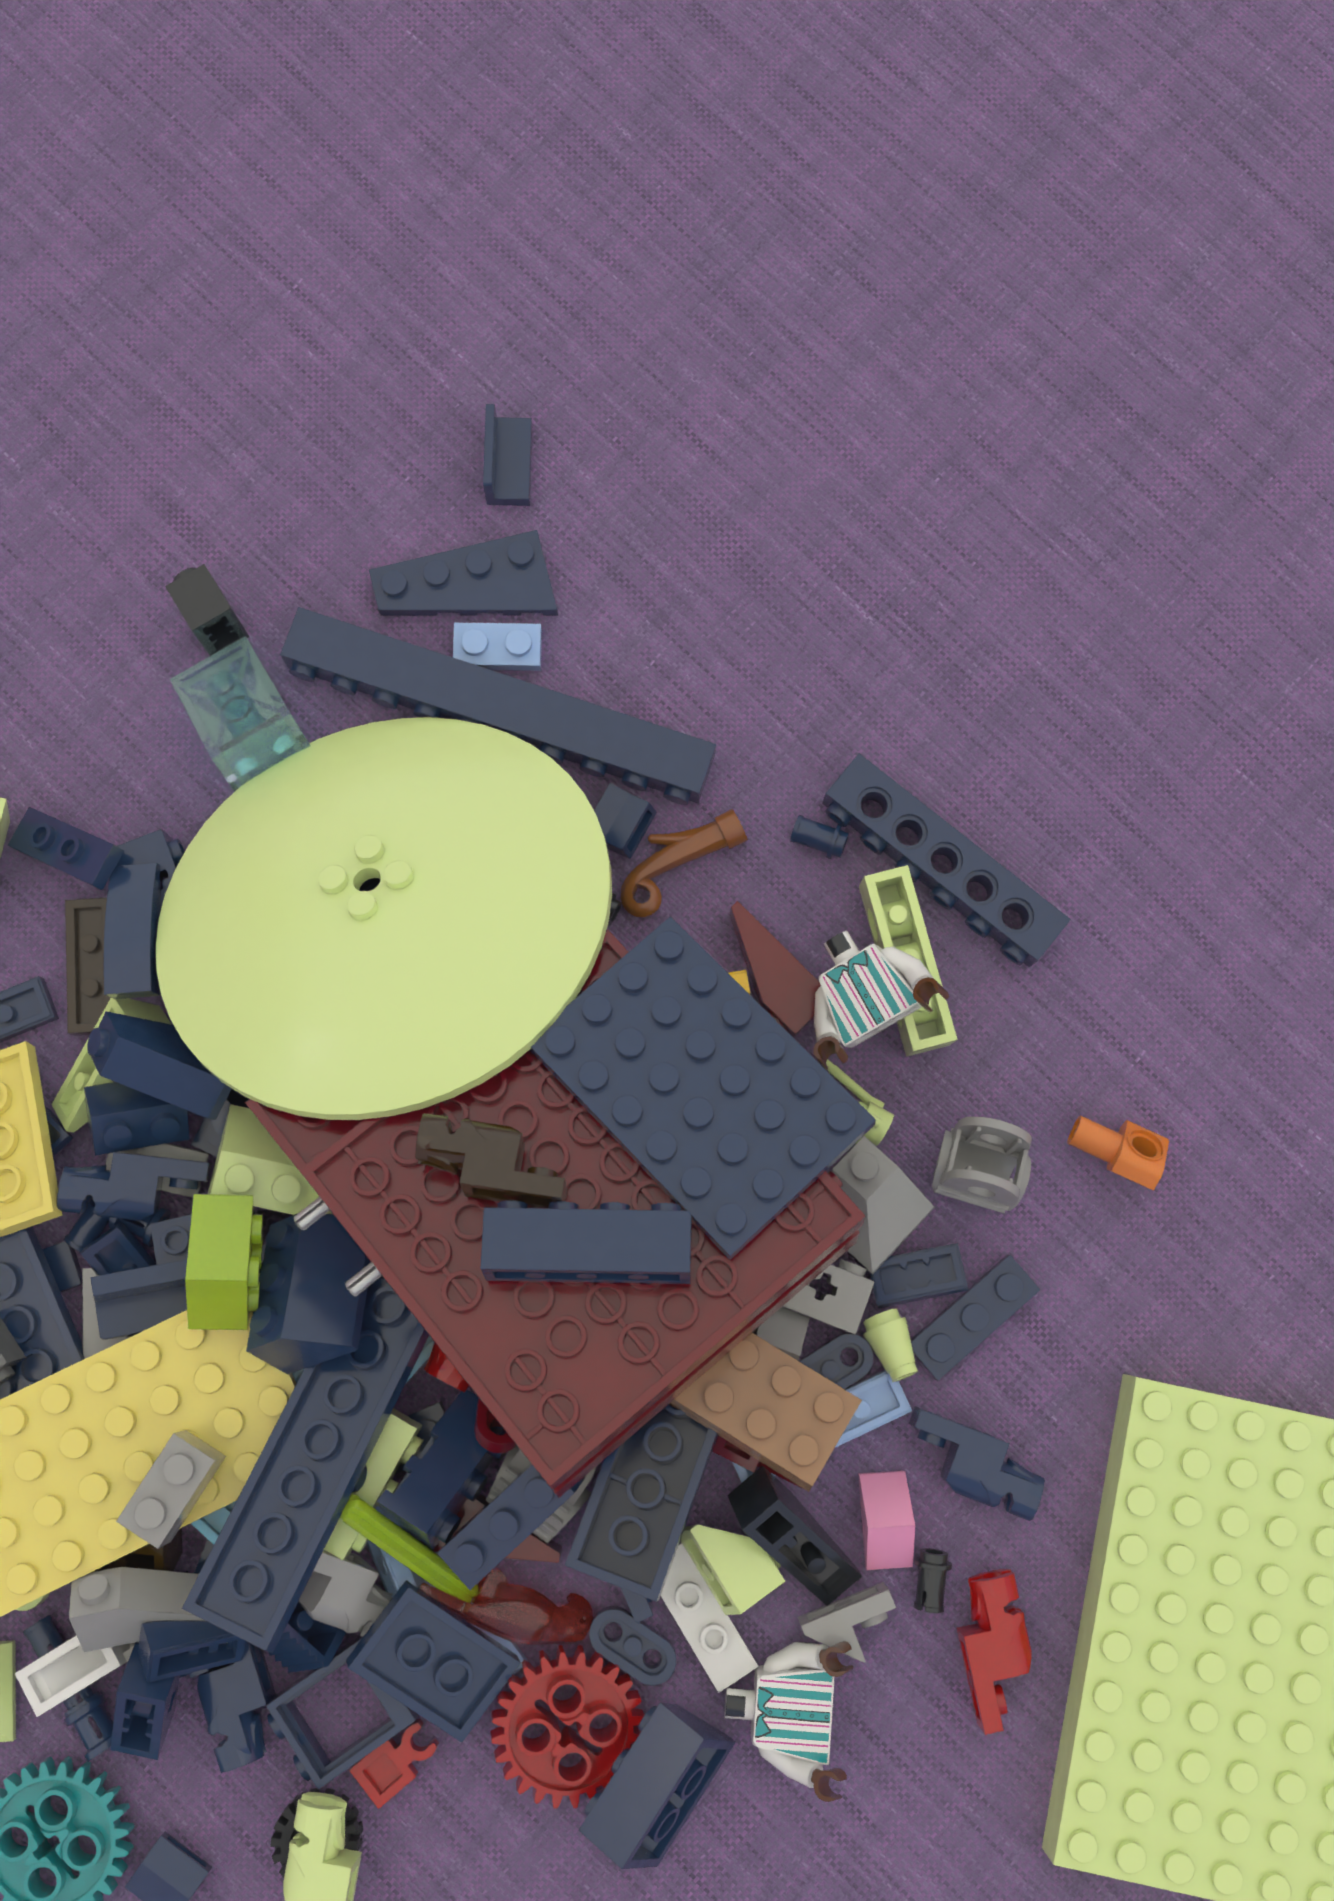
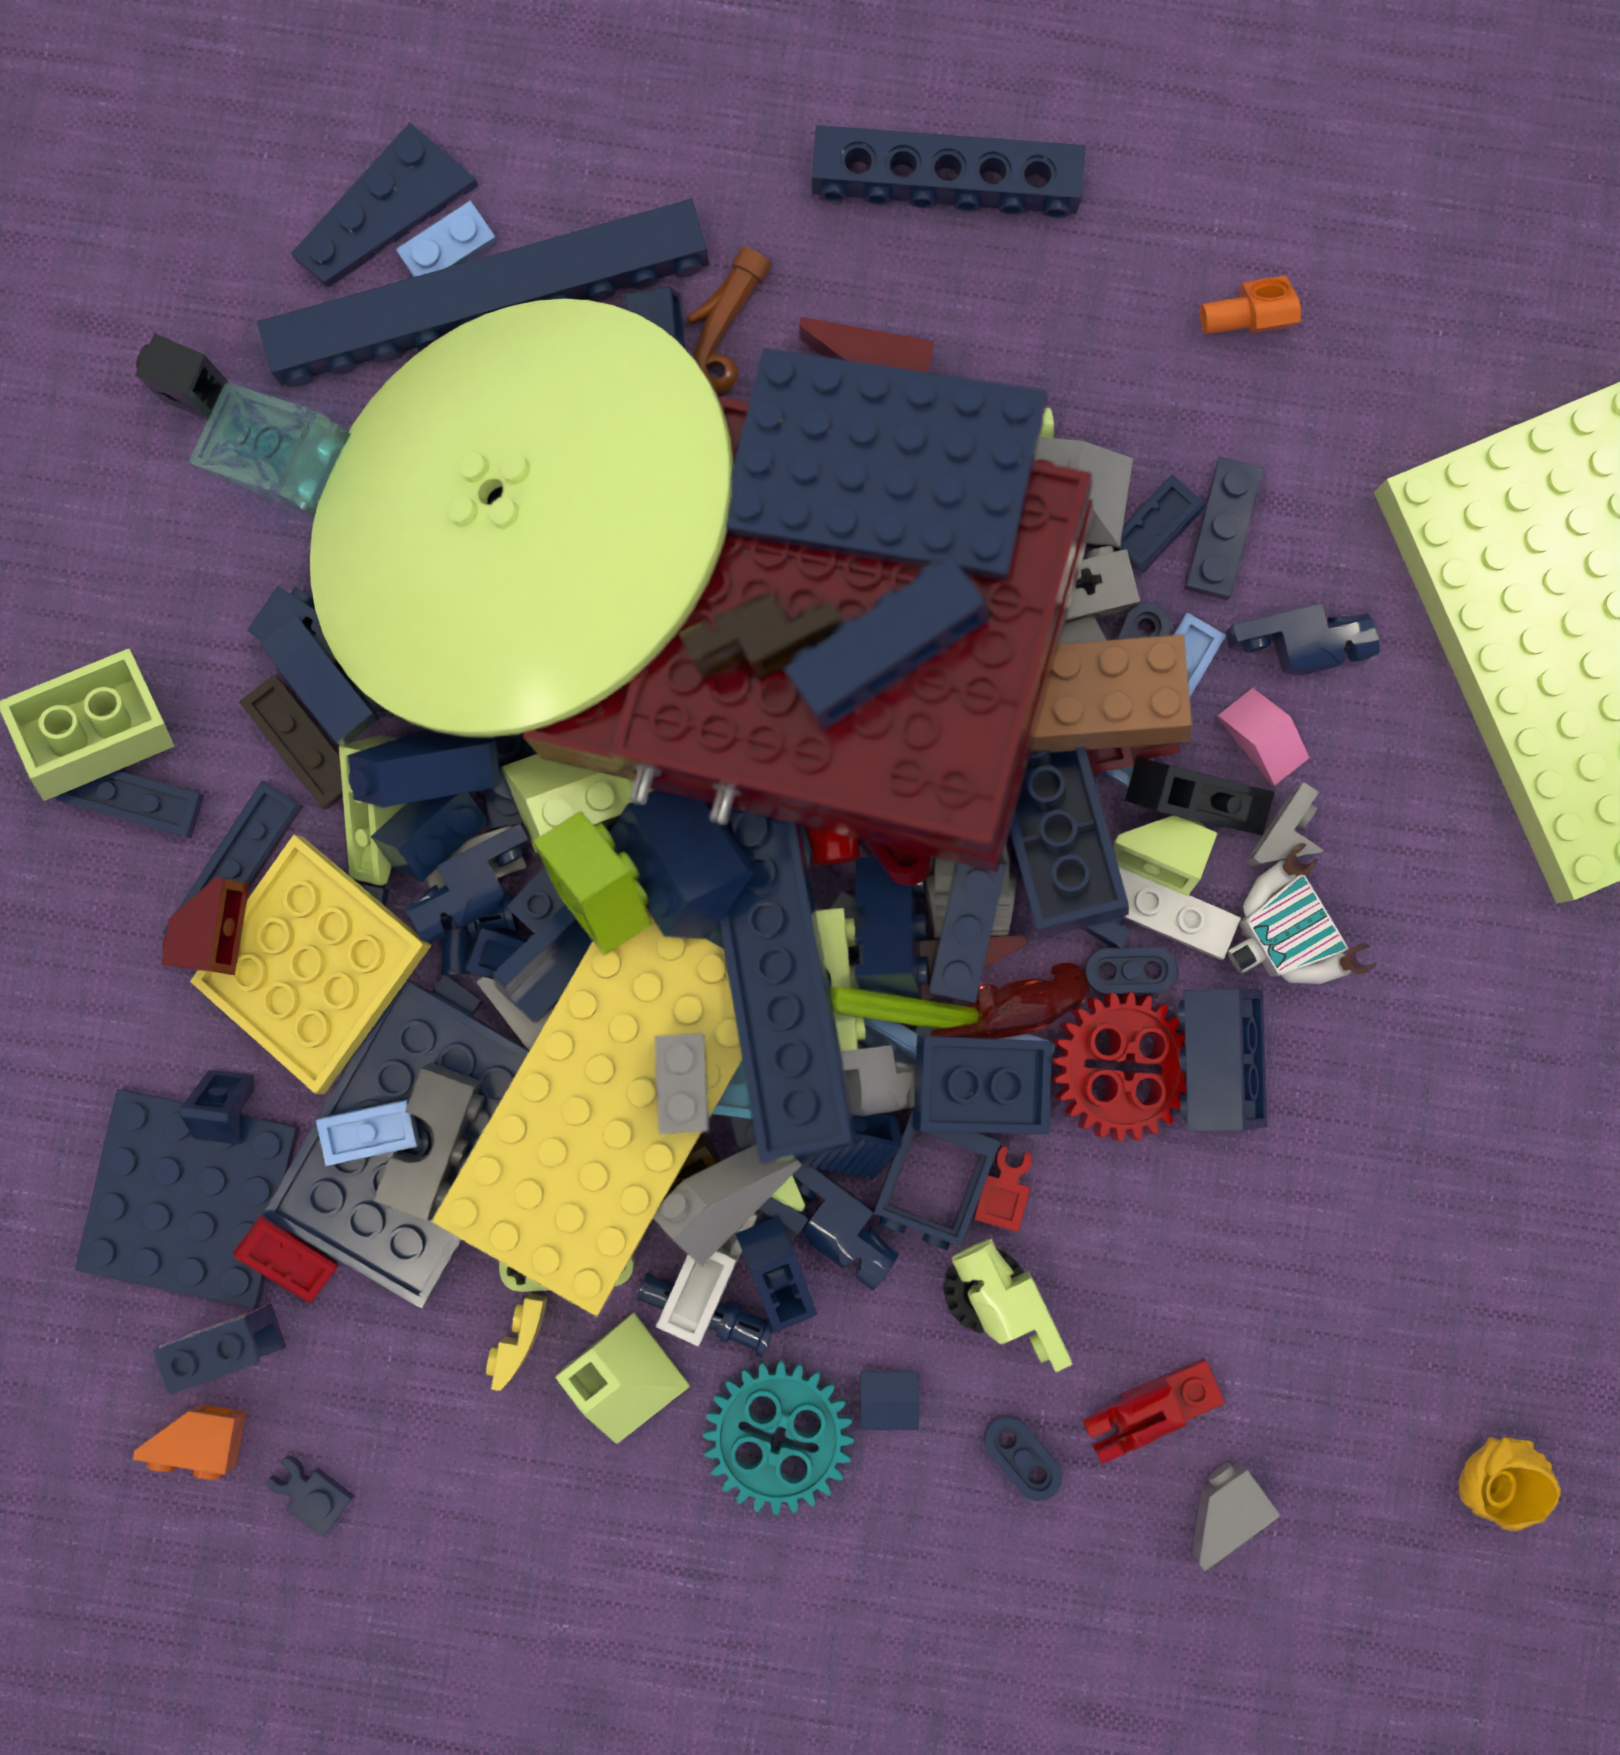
camera: 30 degrees left, 5 degrees up
(66, 848) = (208, 656): dark blue plate -> none
(185, 1647) = (771, 1214): dark blue slope -> none
(507, 459) = (341, 79): dark blue panel -> none
(819, 836) = (830, 221): dark blue pin -> none
(866, 994) = (963, 311): torso -> none
(891, 1343) = (1173, 591): yellowish green cone -> none
(898, 923) = (974, 272): yellowish green brick -> none
(931, 1579) = (1331, 756): black pin -> none
(979, 1160) = (1144, 397): light grey piece -> none
(993, 1646) = (1416, 772): red plate -> none

